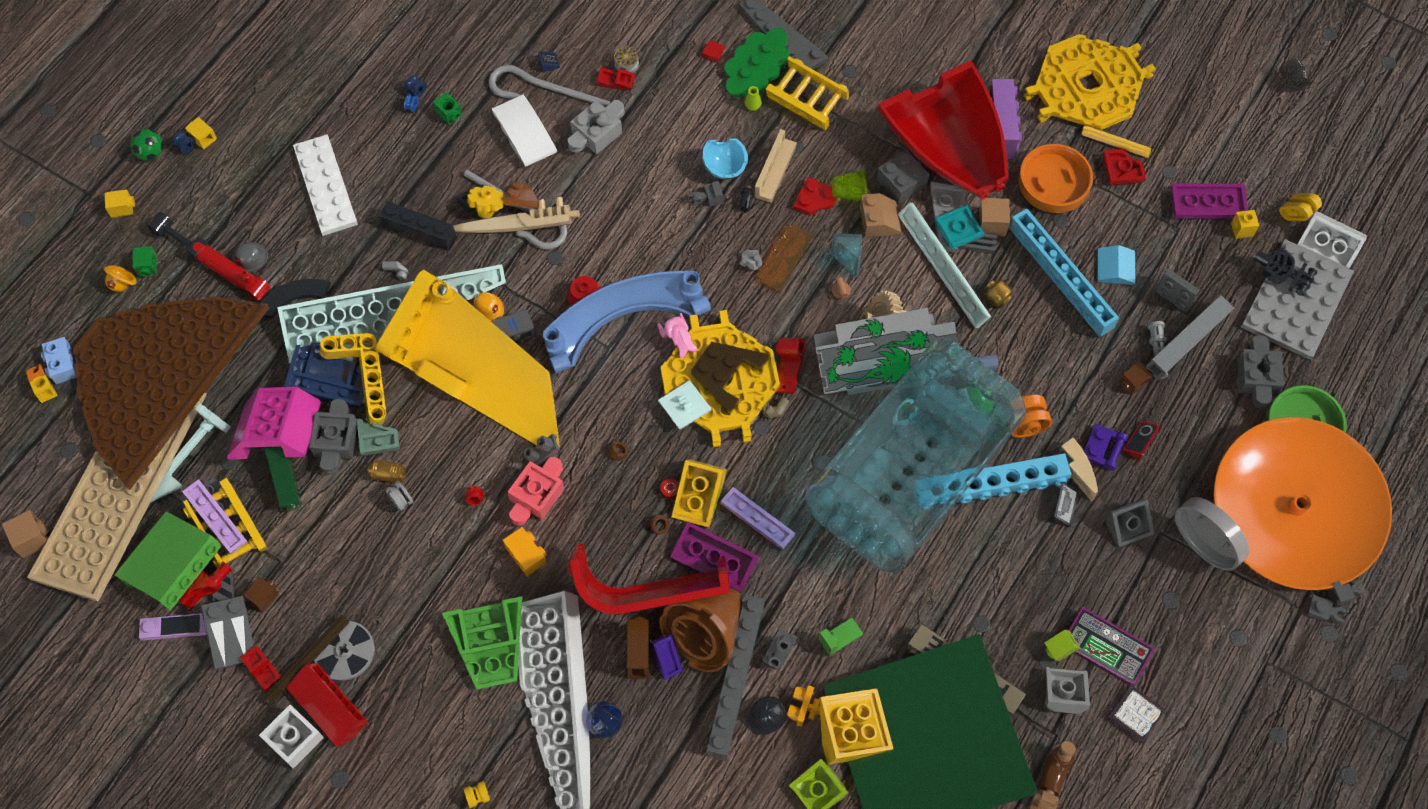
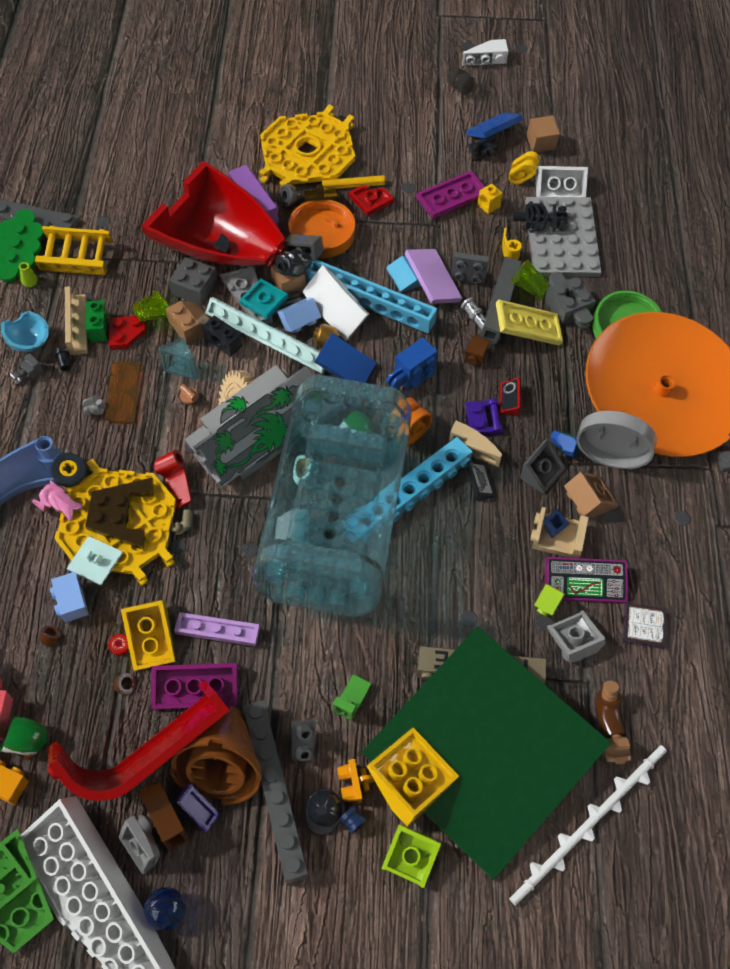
camera: 30 degrees left, 5 degrees down
(559, 526) = (25, 737): none -> green piece
(609, 658) = (139, 842): none -> light grey slope
(649, 426) = (69, 597): none -> light blue brick
(693, 316) = (68, 479): none -> black bush
(787, 735) = (353, 819): none -> dark blue wheel
(793, 176) = (96, 321): none -> green brick
(901, 246) = (222, 336): none -> black brick
(949, 152) = (222, 244): none -> black tile
(984, 260) = (299, 314): none -> light blue brick
(1001, 328) = (344, 360): none -> blue tile
(1003, 207) = (293, 263): none -> black head
(1024, 192) = (305, 243): none -> dark grey brick
(1024, 264) = (335, 302): none -> white slope
(1042, 127) = (289, 195): none -> dark grey brick
(1063, 364) = (413, 365): none -> blue brick
(1074, 140) = (320, 194): none -> dark brown piece
(1108, 591) = (566, 543): none -> tan panel
(1109, 580) = (555, 523): none -> dark blue slope
(1138, 280) = (433, 276): none -> lavender tile
(1160, 571) = (590, 495): none -> medium nougat slope
(1166, 510) = (565, 442): none -> blue rock
(1203, 375) = (529, 322): none -> light yellow tile
(1232, 331) = (530, 279): none -> clear neon green wing
(1234, 288) = (511, 247): none -> yellow panel
(1274, 163) = (483, 148): none -> black hips
(1299, 143) = (494, 125): none -> blue tile
(1343, 54) = (487, 53): none -> white slope
(1344, 177) = (542, 134): none -> medium nougat head

